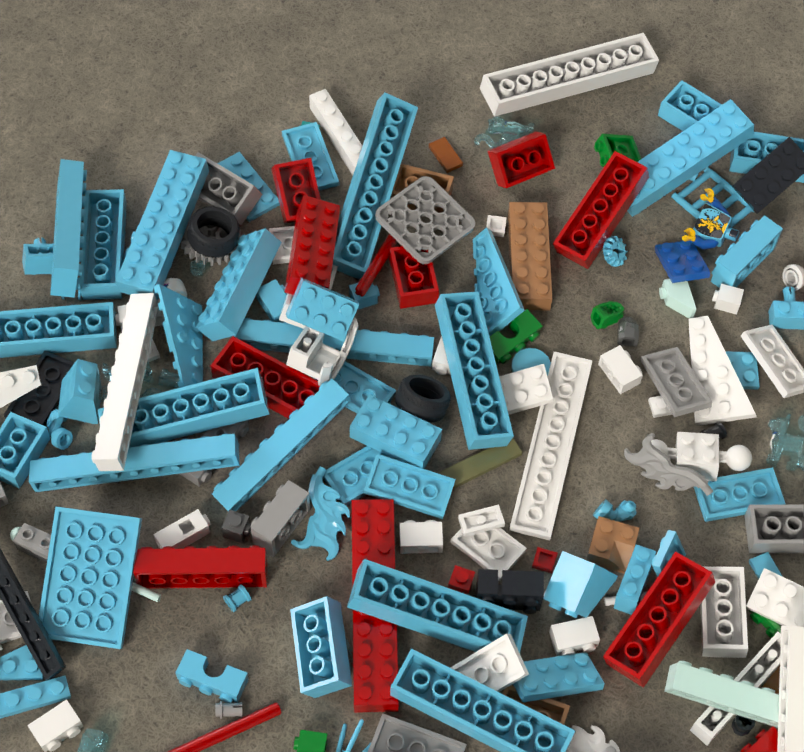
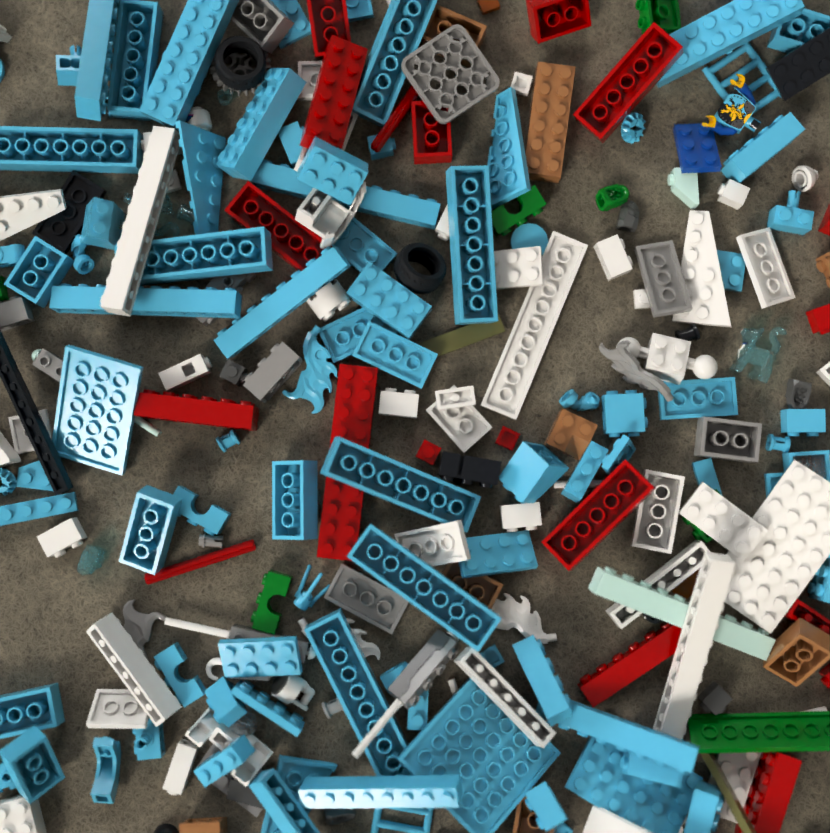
camera: 10 degrees right, 25 degrees up
(160, 698) = (150, 529): none -> medium azure brick
(330, 441) = (328, 300): none -> white brick
(664, 513) = (623, 413): none -> medium azure brick

